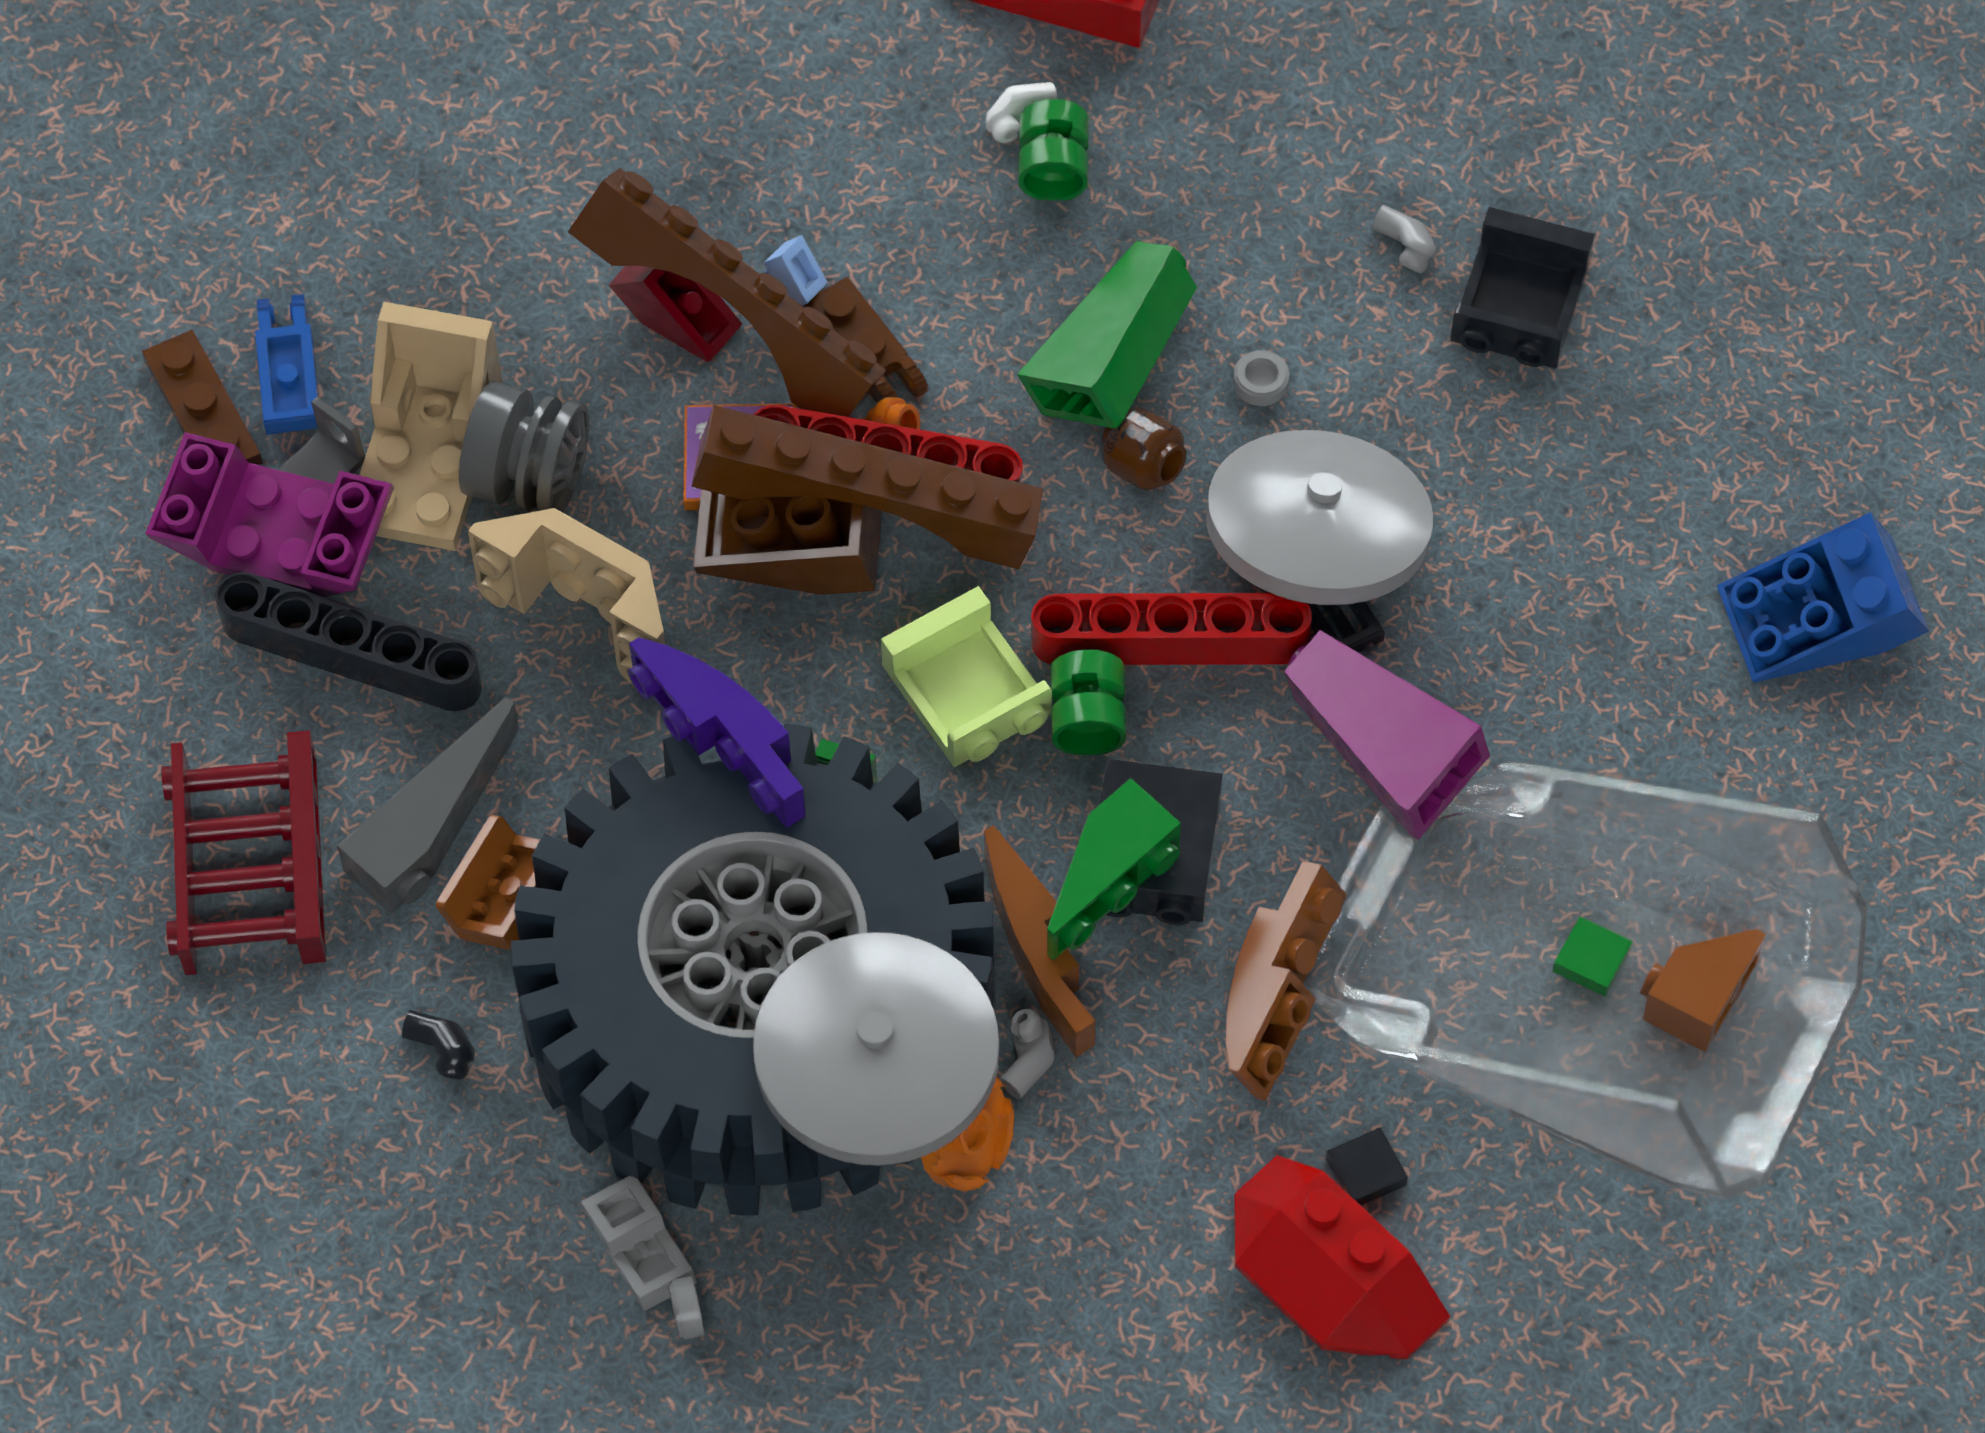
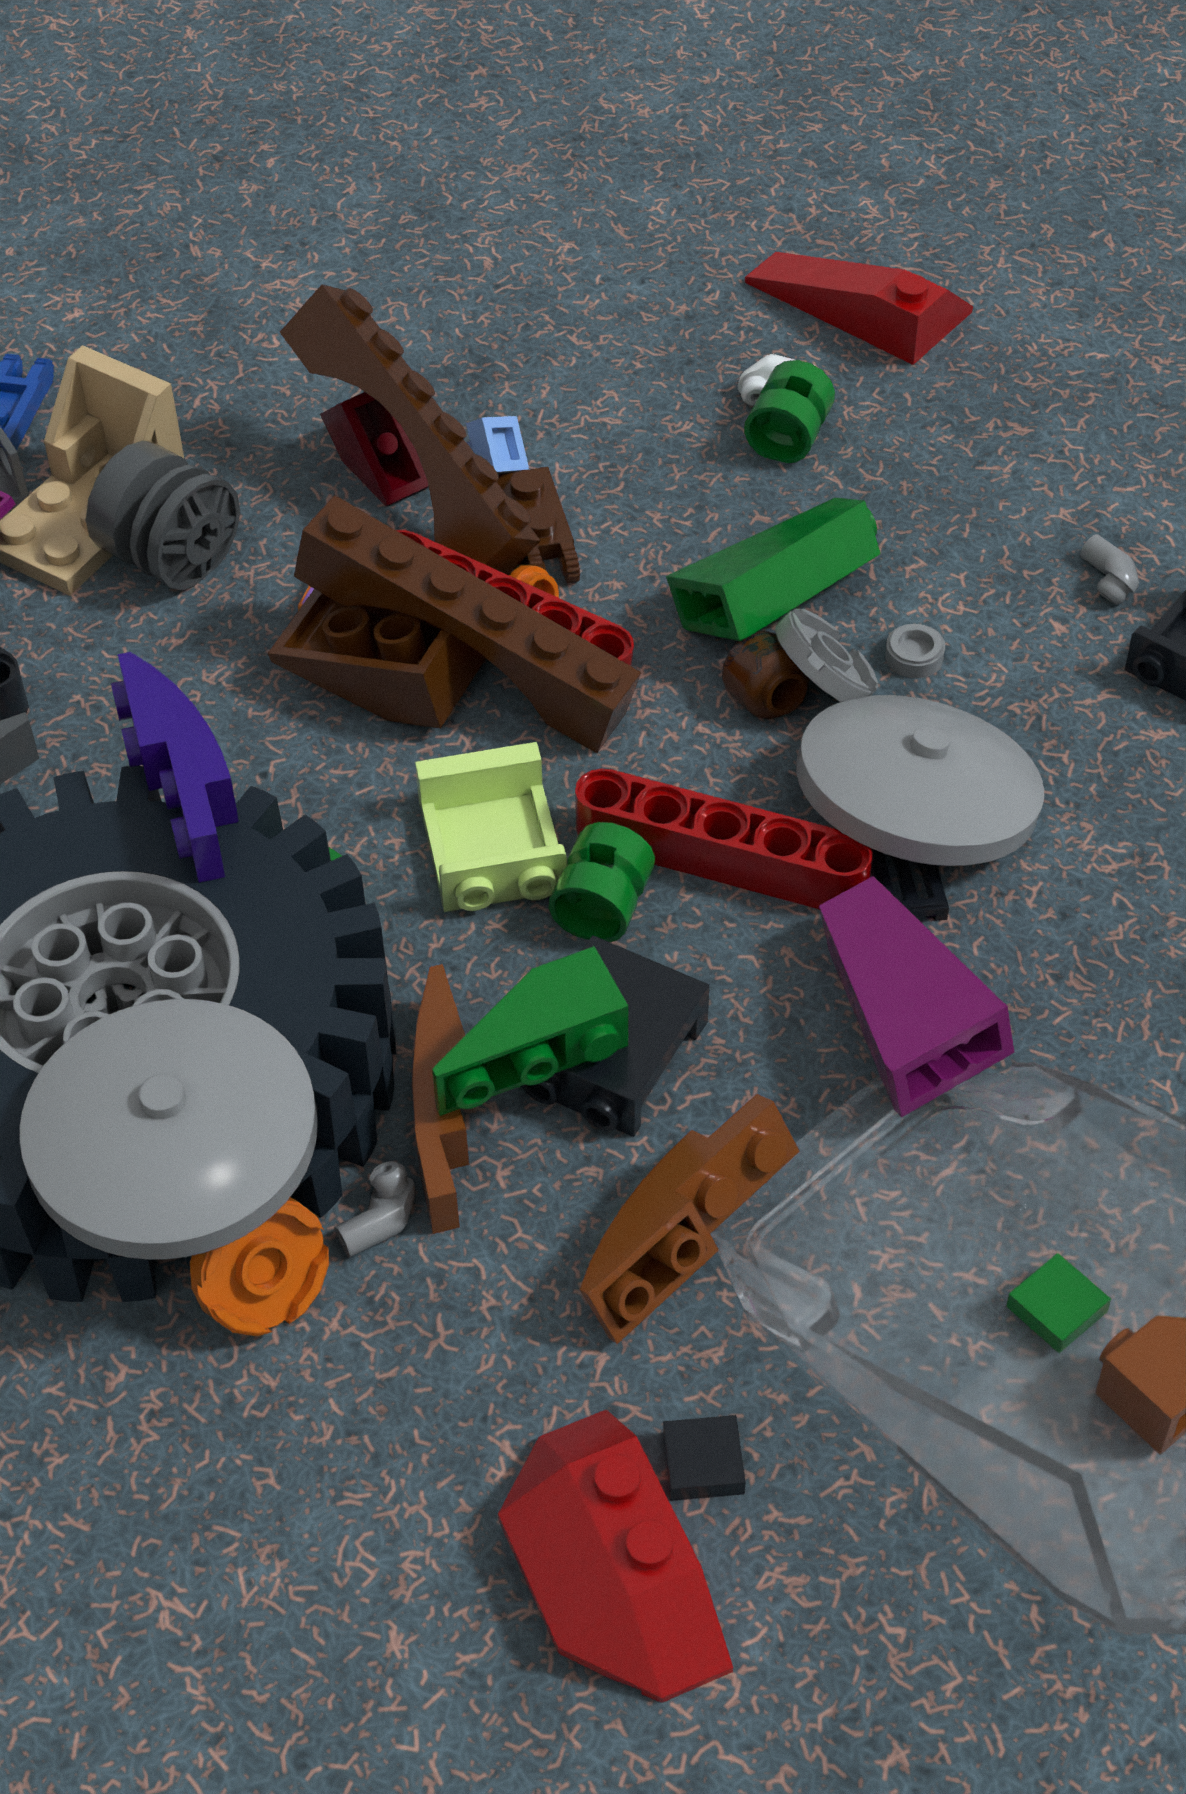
camera: 20 degrees right, 10 degrees down
(526, 551) = (129, 601): tan slope -> none
(1196, 423) = (819, 655): none -> light grey tile

